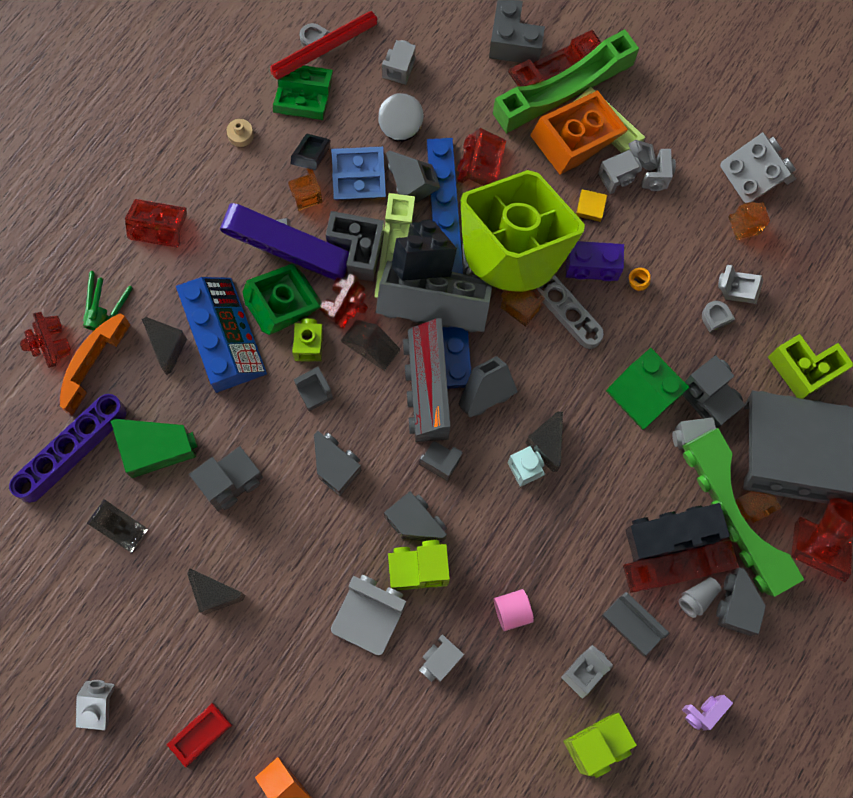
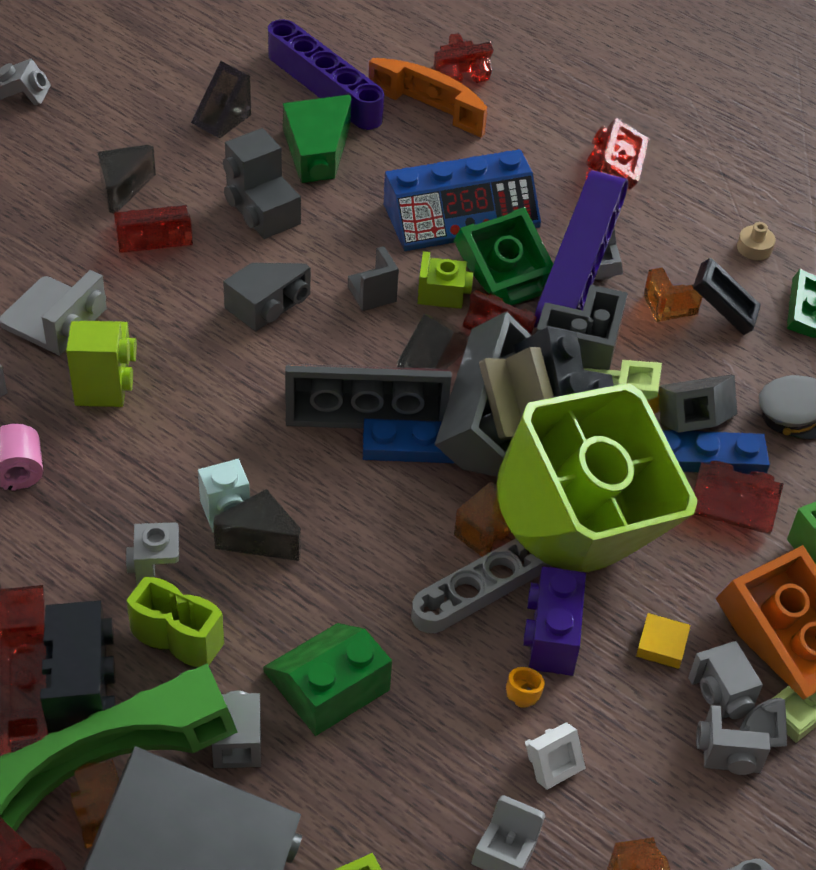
camera: 95 degrees right, 25 degrees down
(95, 315) = (493, 100): green plant -> none
(166, 342) = (446, 145): clear smoke slope -> none
(265, 560) = (153, 228): none -> clear red bracket
(358, 173) = (700, 353): medium blue slope -> none
(413, 521) = (171, 365): dark grey slope -> none
(441, 460) = (249, 406): dark grey panel -> none
(448, 274) = (512, 385): none -> dark tan panel
(487, 386) = (355, 459): dark grey slope -> none
(584, 502) = (152, 545): none -> light grey bracket
(634, 483) = (175, 621): none -> lime brick
(682, 262) = (556, 755): none -> white tile
(711, 394) = (310, 756): dark grey brick -> none
(716, 315) = (455, 806): light grey tile -> none

